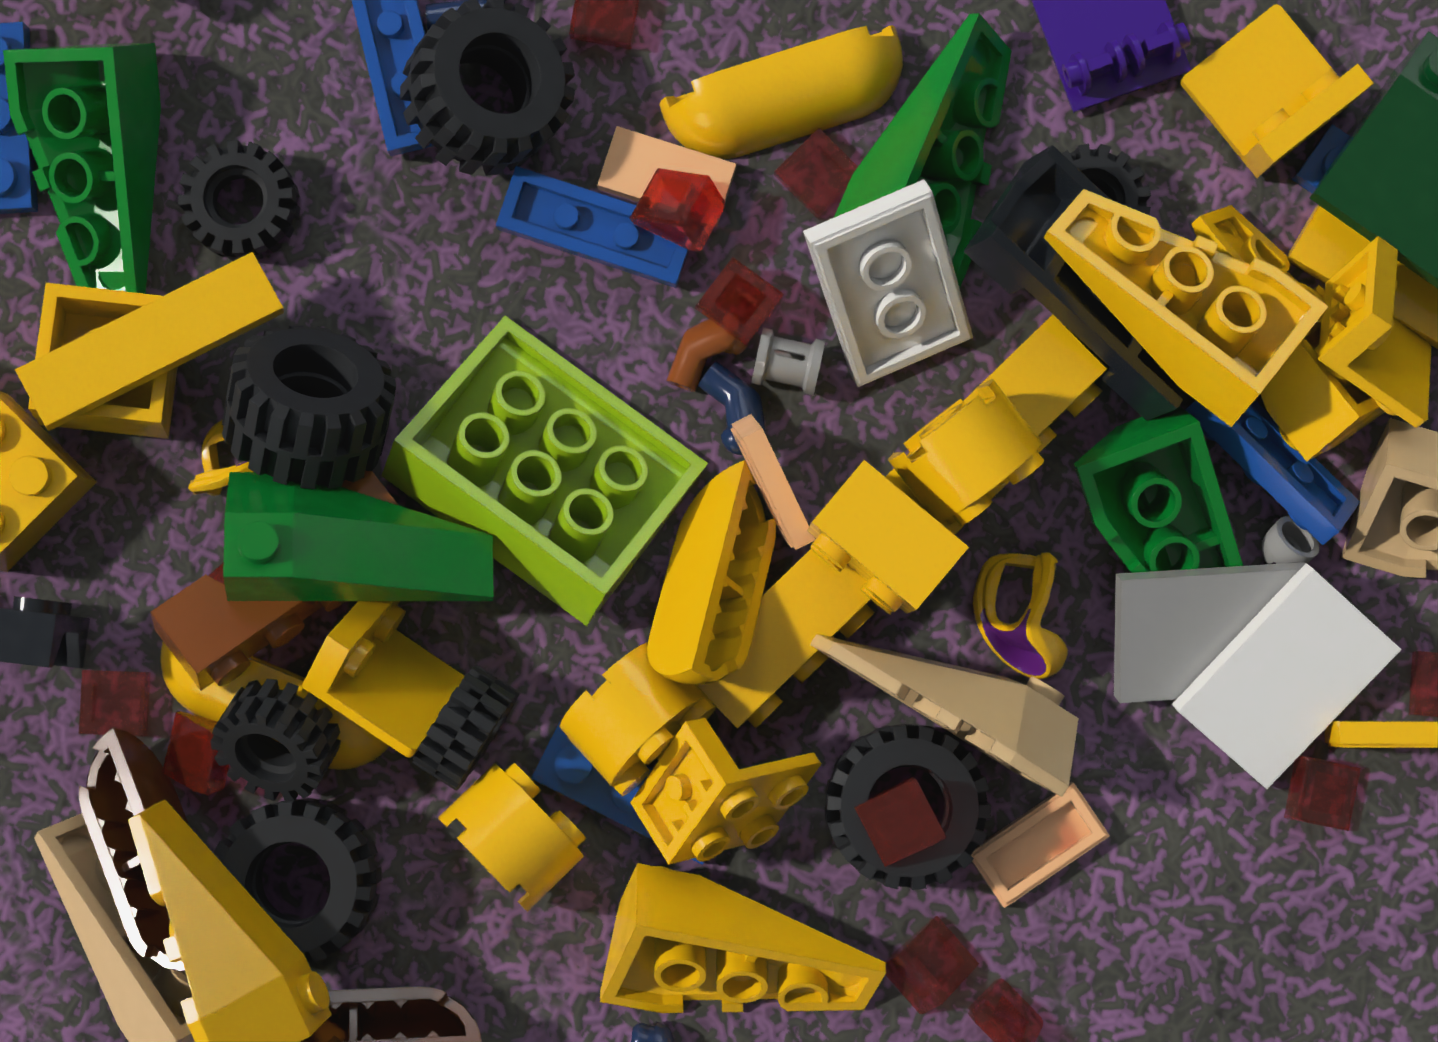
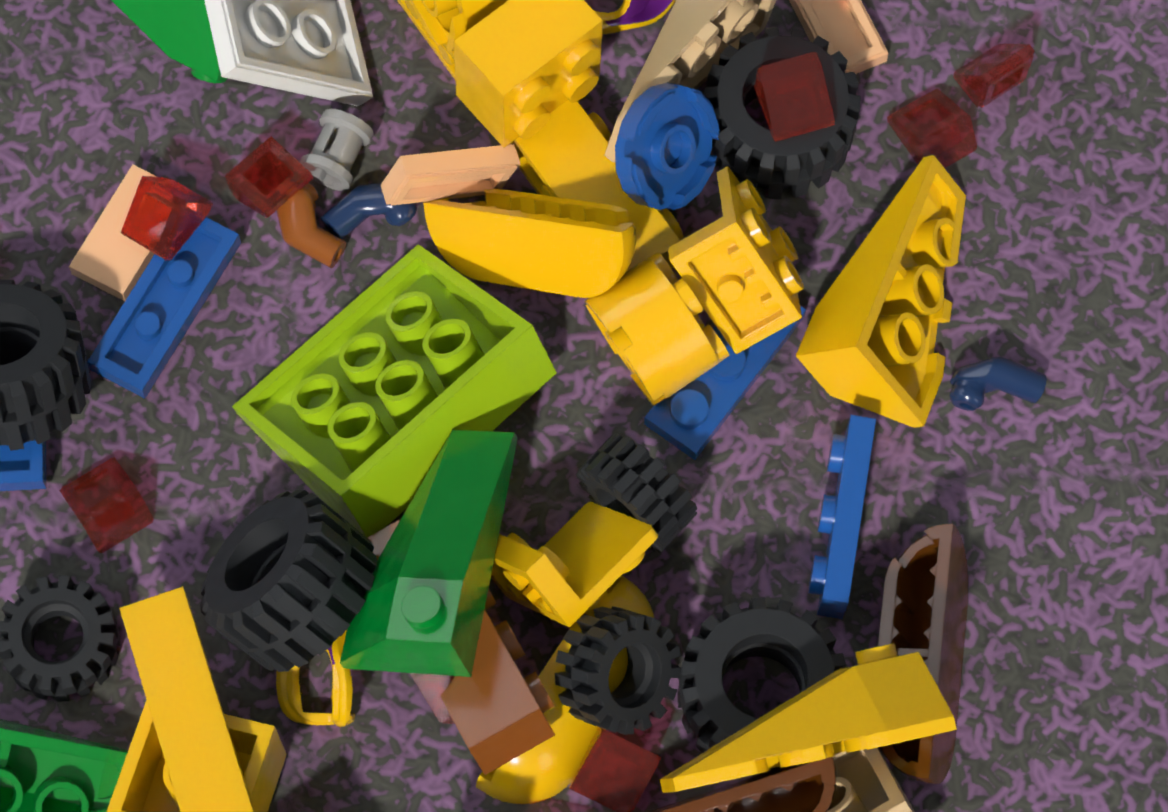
camera: 85 degrees left, 15 degrees down
(385, 216) = (107, 505): none -> clear red slope
(486, 934) = (842, 516): none -> blue plate
(514, 834) = (748, 464): yellow brick -> none
(787, 94) = (76, 113): yellow brick -> none
(817, 173) = (158, 97): clear red tile -> none
(822, 697) = (666, 146): none -> blue tile

